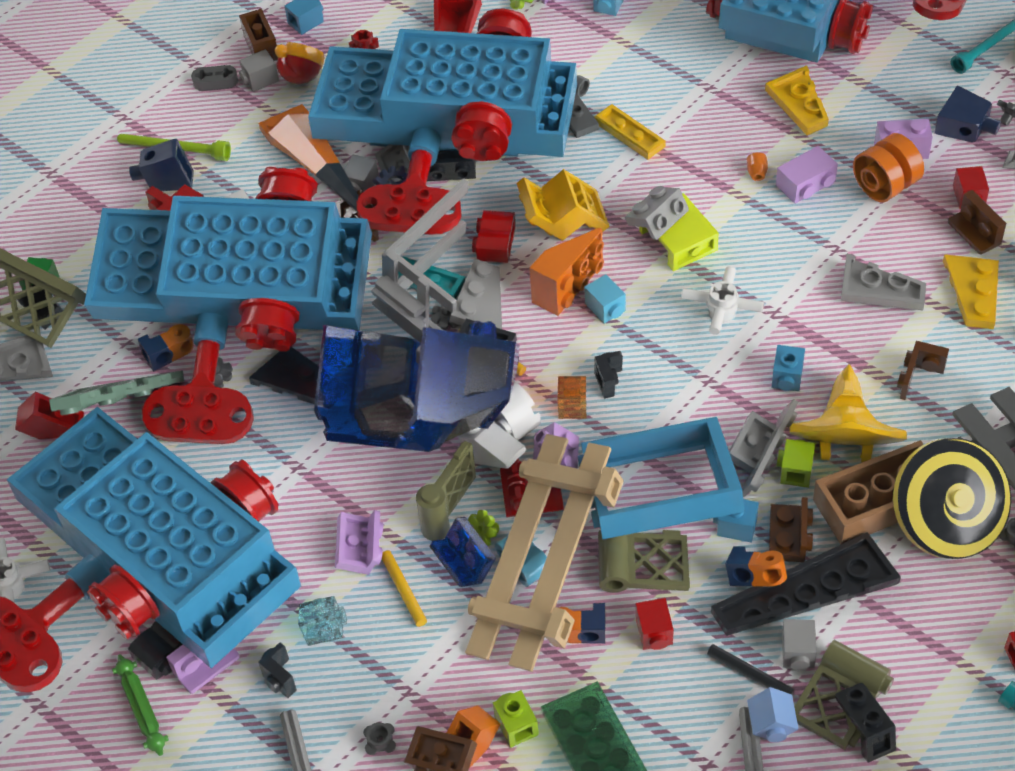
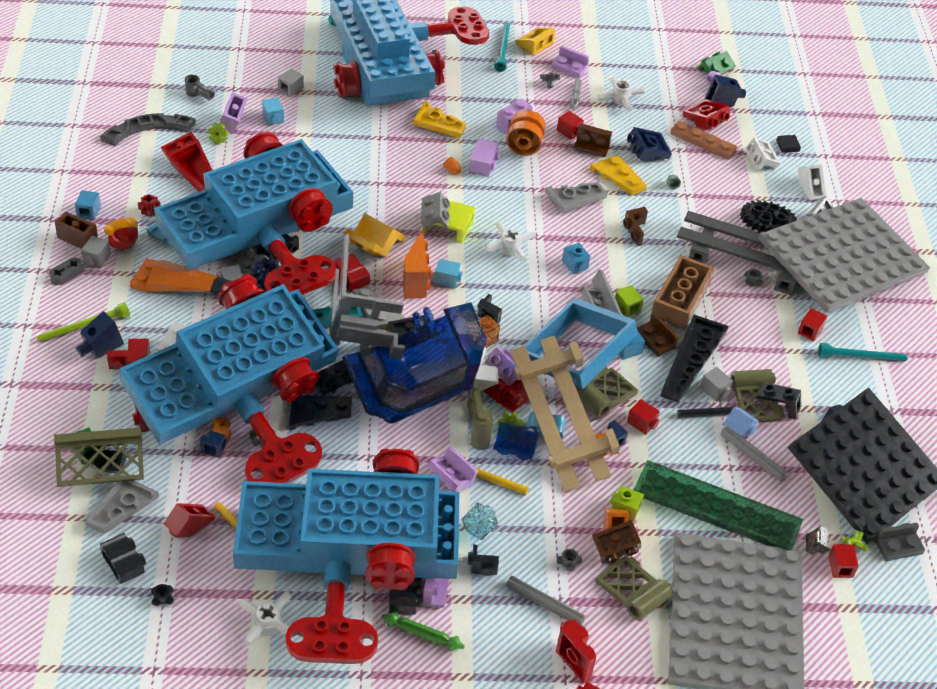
camera: 50 degrees left, 5 degrees down
(112, 392) = (232, 474): sand green wing -> none
(630, 131) = (365, 181): yellow tile -> none
(755, 568) = (664, 360): leg -> none
(847, 421) = (631, 266): yellow animal -> none
(952, 498) = (720, 274): dish -> none
(966, 117) = (532, 89): dark blue torso -> none

